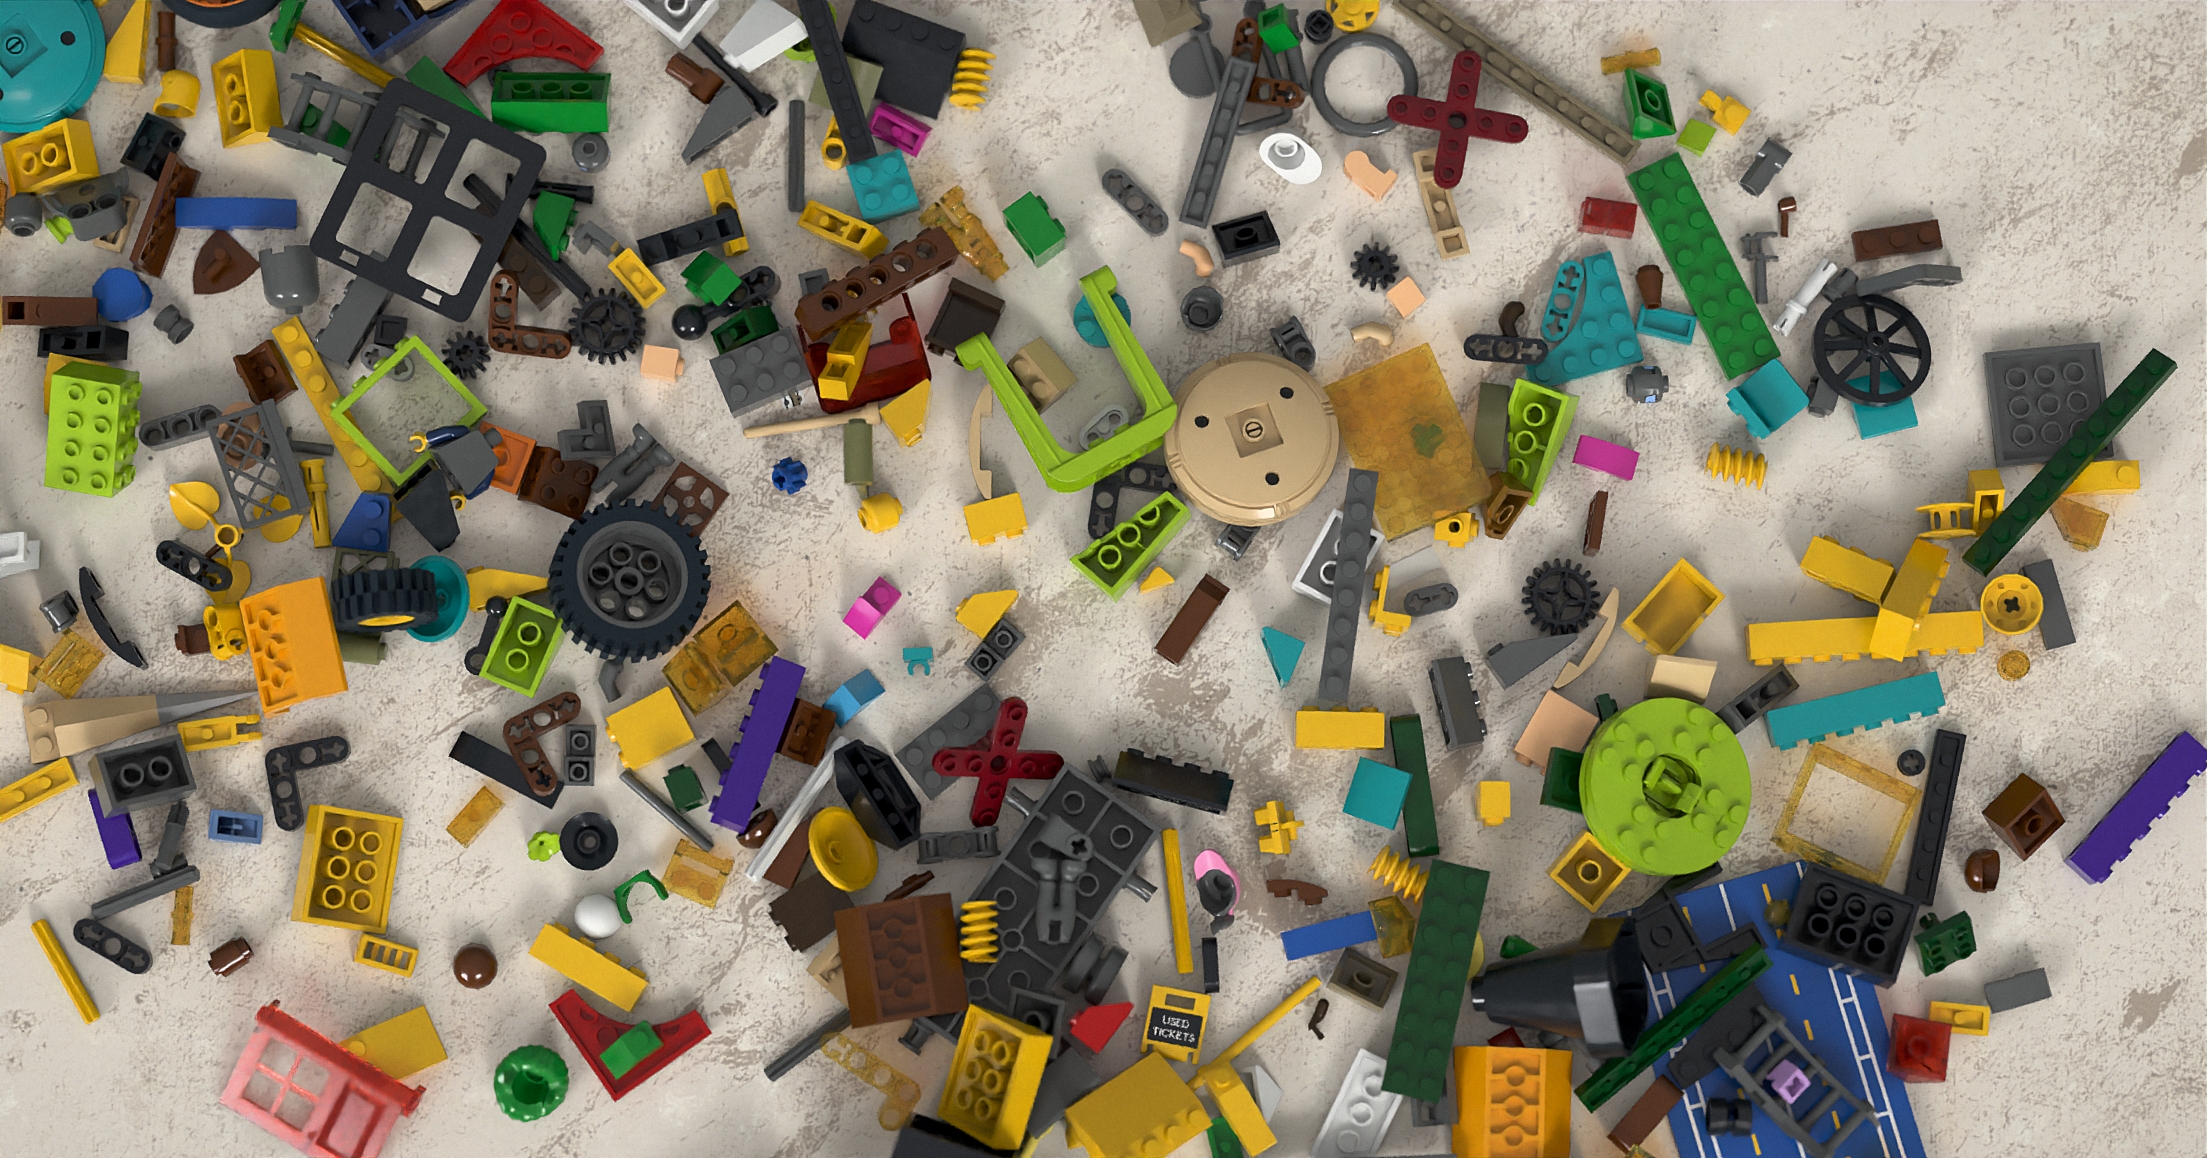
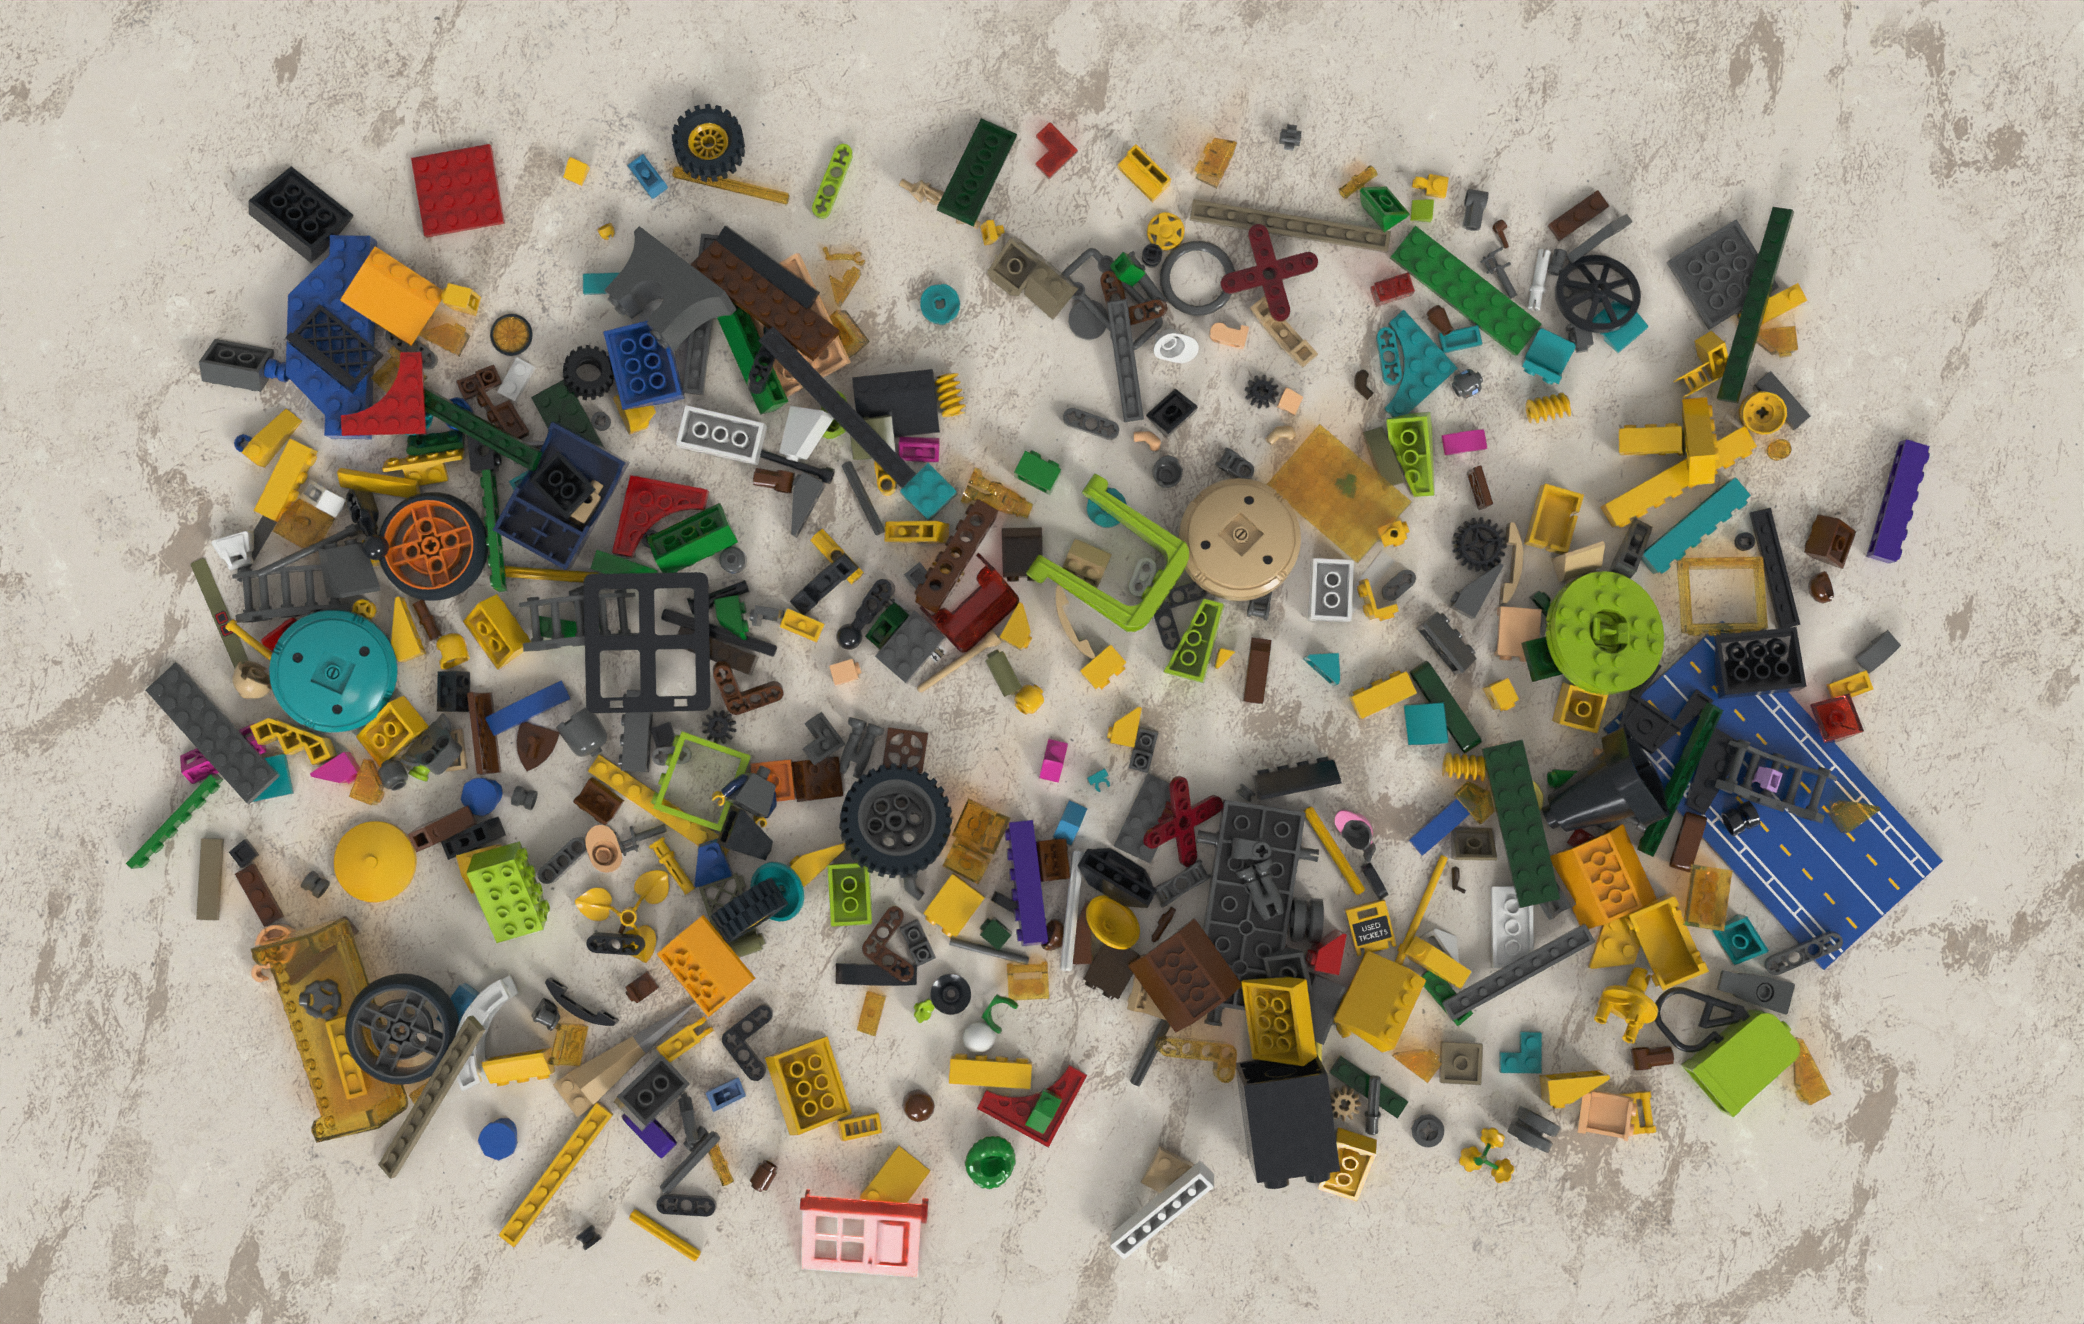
camera: 25 degrees left, 5 degrees up
(225, 627) = (655, 974): yellow piece -> none
(283, 458) = (637, 849): dark grey fence -> none
(495, 608) = (820, 877): black piece -> none
(595, 324) = (788, 668): black gear -> none
(710, 279) = (849, 604): green brick -> none
(789, 475) = (961, 703): blue gear -> none
(845, 360) = (960, 614): yellow slope -> none
(978, 931) = (1224, 934): yellow piece -> none
(1282, 827) = (1368, 768): yellow hips -> none
(1305, 891) = (1411, 806): reddish brown slope -> none
(1348, 585) = (1346, 603): dark grey plate -> none
(1506, 504) = (1419, 497): pearl gold slope -> none
(1514, 340) = (1385, 404): black beam -> none
(1777, 912) = (1709, 676): clear yellow plate -> none
(1943, 942) = (1820, 644): dark green plate -> none

